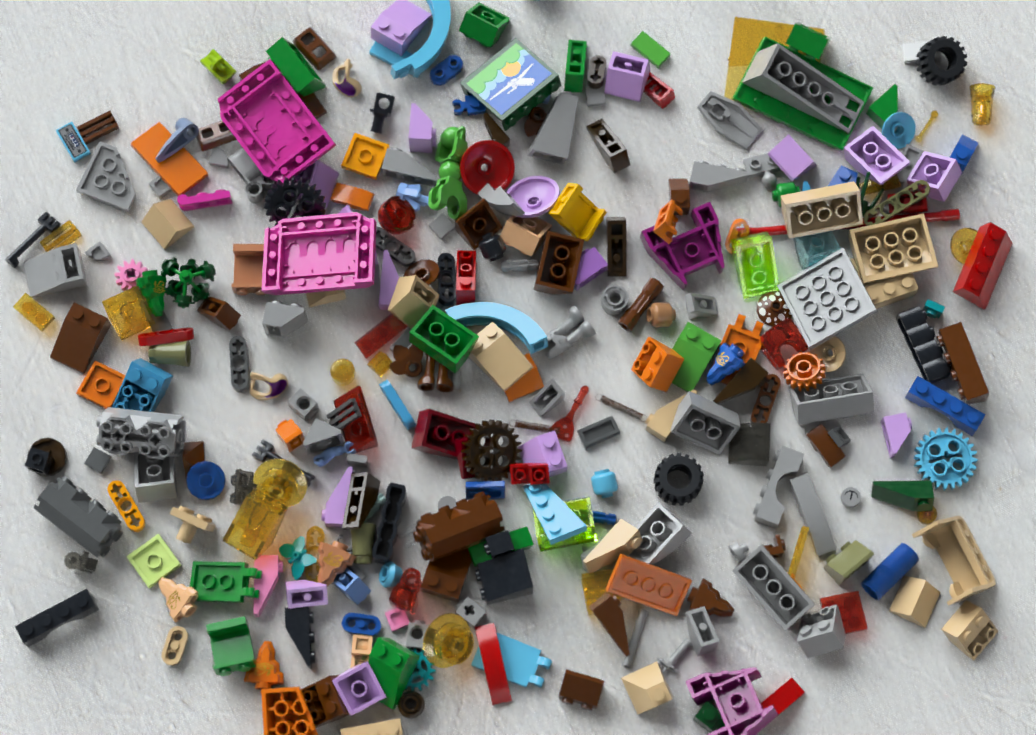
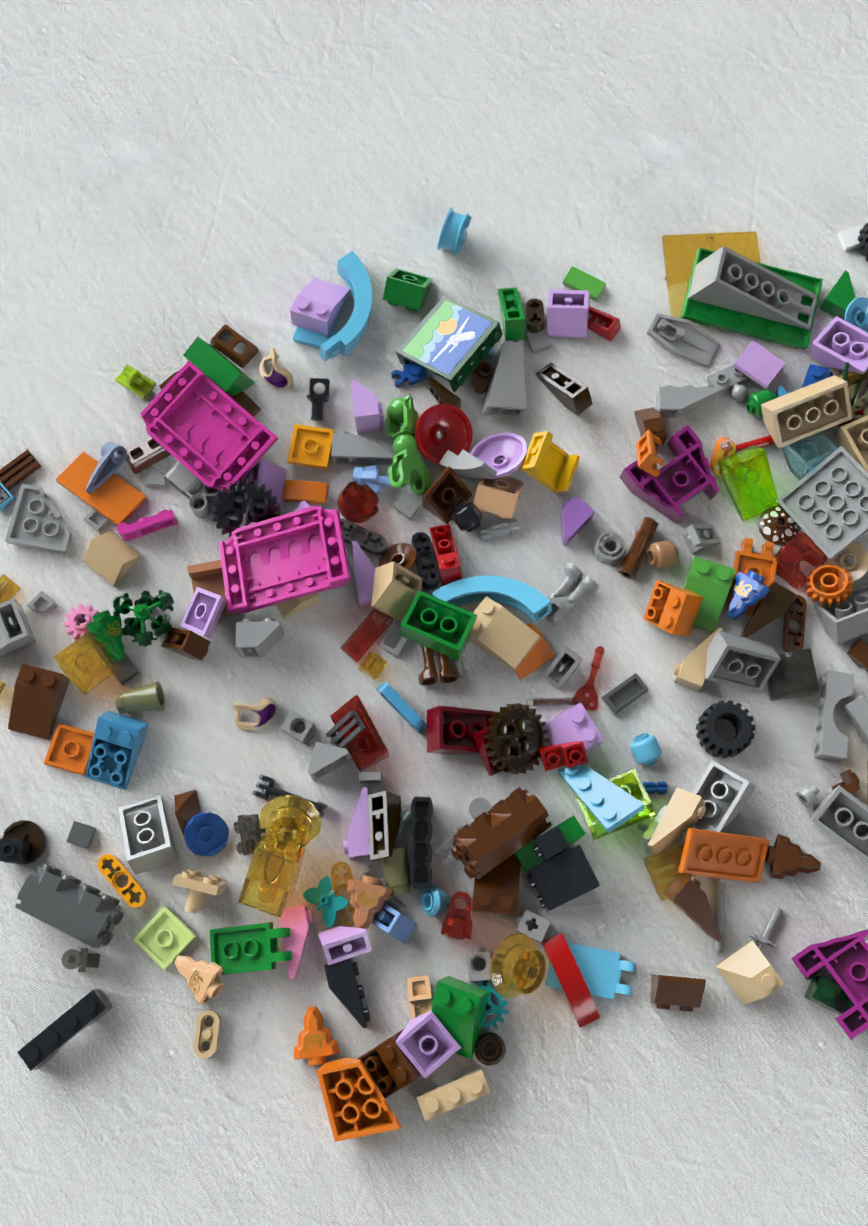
camera: 10 degrees left, 0 degrees up
(141, 432) = (126, 795): light grey brick -> none
(166, 336) = (132, 681): red beam -> none
(231, 646) = (272, 1023): green panel -> none
(240, 288) = (204, 612): none -> lavender slope
(243, 350) = (220, 680): dark grey beam -> none
(290, 434) = (290, 763): orange slope -> none
(328, 454) = (339, 774): light blue arm -> none
(342, 372) = (334, 682): clear yellow head -> none
(362, 622) = (413, 964): blue plate -> none
(397, 619) = (451, 949): bright pink tile -> none
(404, 358) = (398, 655): reddish brown plate -> none
(448, 71) = (378, 341): blue plate -> none
(494, 489) = (526, 780): blue tile -> none
(558, 264) = (542, 521): reddish brown slope -> none
(616, 246) = (598, 490): dark brown slope -> none
(622, 406) = (644, 662): piece -> none
(701, 631) = (793, 895): light grey slope -> none
(807, 41) = (747, 242): green slope -> none

